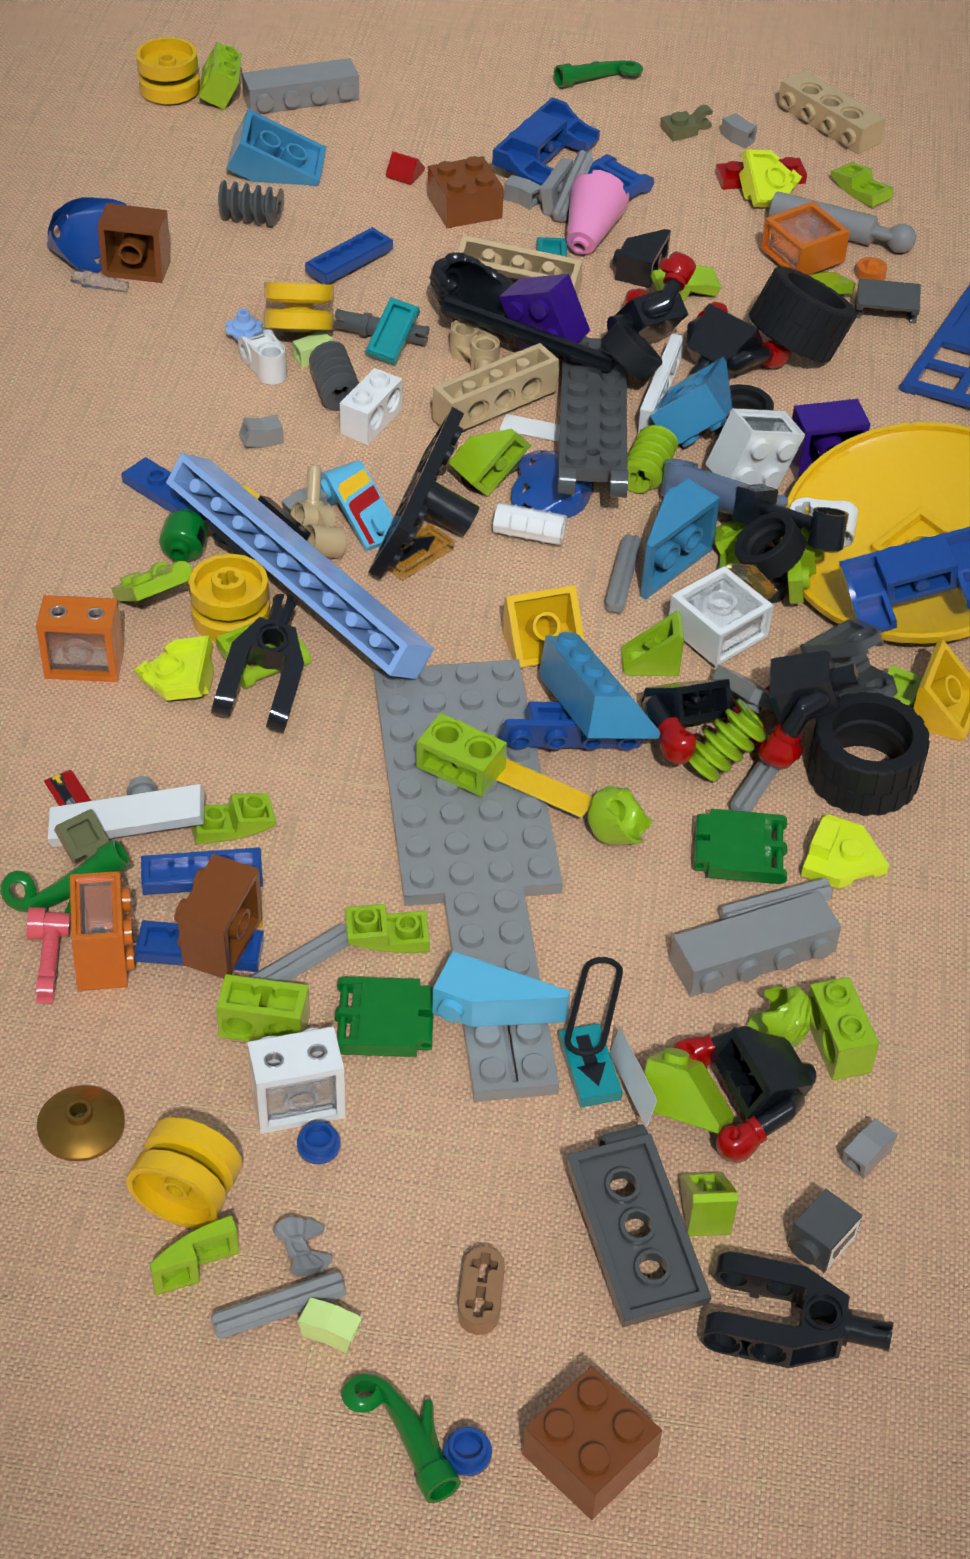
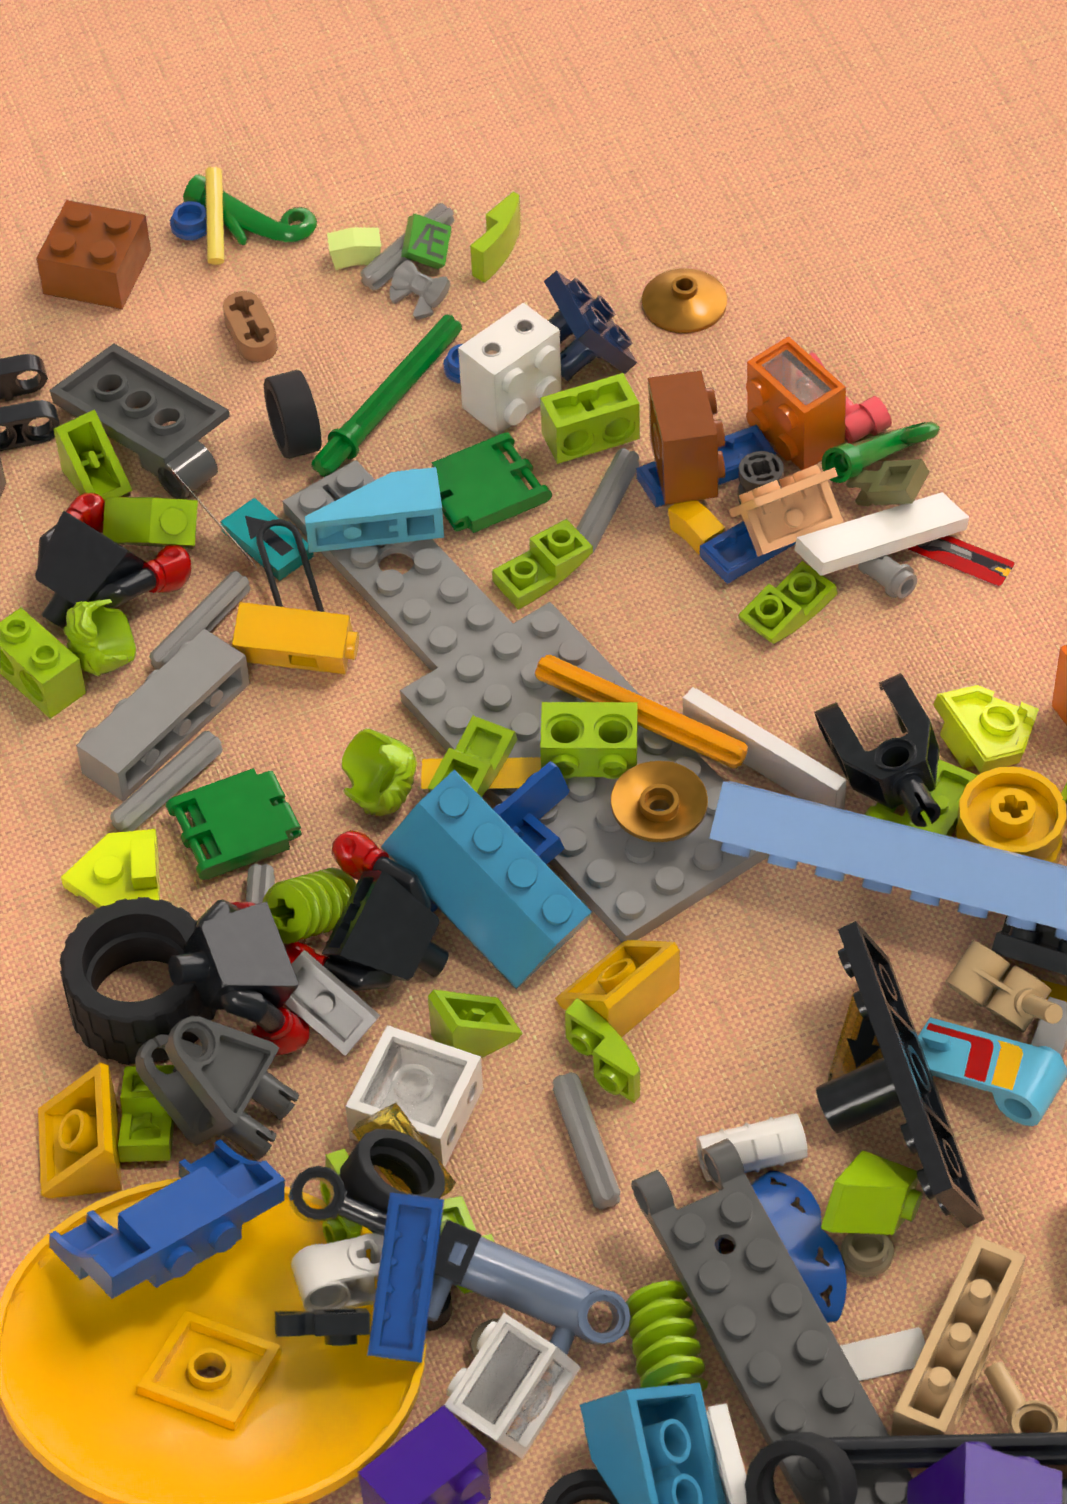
camera: 155 degrees right, 5 degrees up
(166, 898) = (759, 469): none -> dark grey wheel
(180, 840) = (782, 514): none -> light nougat bracket
(184, 1172) = (538, 244): yellow wheel -> none
(201, 1086) = (590, 323): none -> dark blue plate
(264, 1282) = (426, 241): none -> bright green tile
(341, 720) = (768, 753): none -> white tile
(404, 1145) = (345, 442): none -> green axle
(409, 768) = (650, 714): none -> light orange axle
(444, 1427) = (214, 216): none -> light yellow piece
(446, 692) = (663, 787): none -> pearl gold dish
(509, 1136) = (292, 414): none -> black tyre
(555, 784) = (477, 755): none -> lime slope
(586, 590) = (612, 1059): none -> lime slope
(623, 947) = (295, 638): none -> yellow brick
(680, 534) = (536, 1199): dark azure slope -> none
(684, 1016) = (204, 616): none -> light grey axle
(793, 484) = (406, 1277): none -> blue plate
(849, 489) = (337, 1325): none -> black plate

